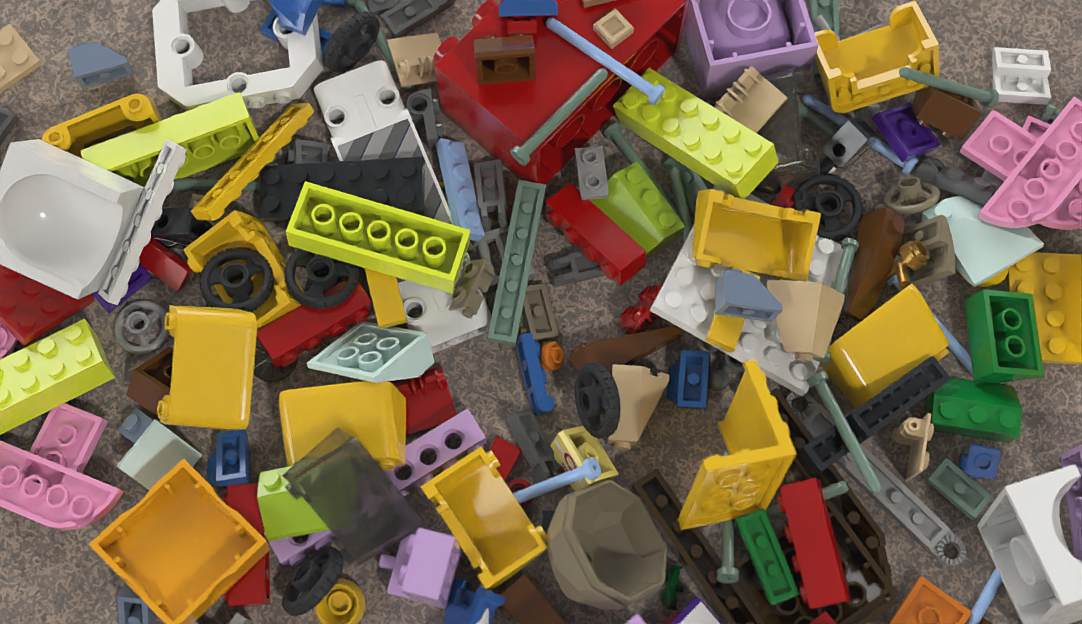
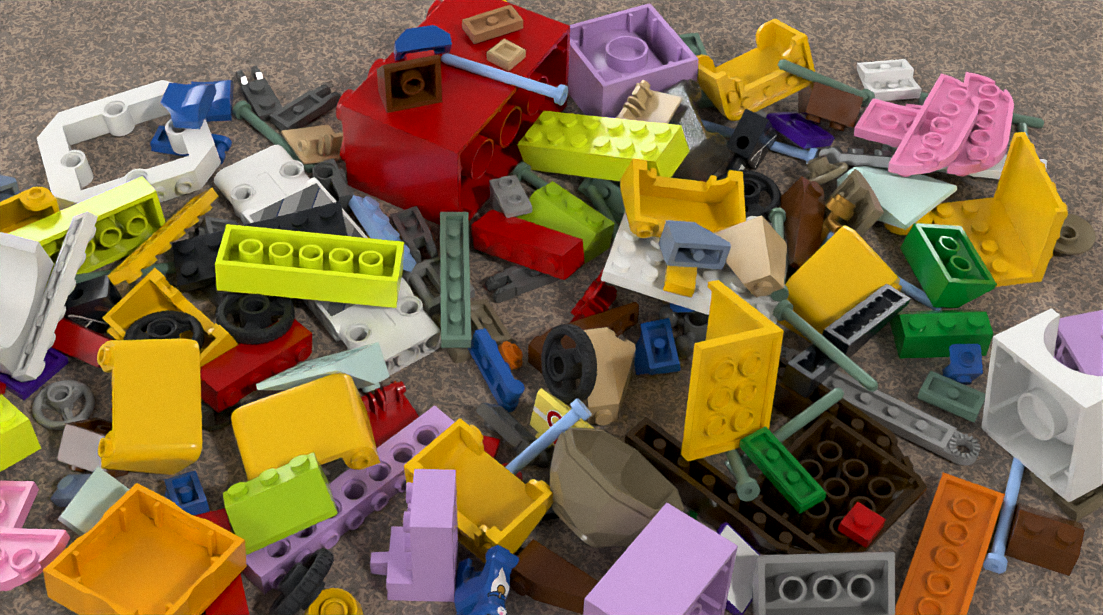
camera: 15 degrees left, 25 degrees down
(348, 44) = (244, 131): black wheel -> none
(352, 497) = (335, 485): clear smoke windscreen -> none
(386, 299) = (326, 323): yellow tile -> none
(476, 276) = (416, 299): dark tan hinge -> none
(522, 153) = (444, 154): sand green bar -> none
(814, 544) = (827, 442): red brick -> none
(915, 433) = (893, 356): tan hinge -> none

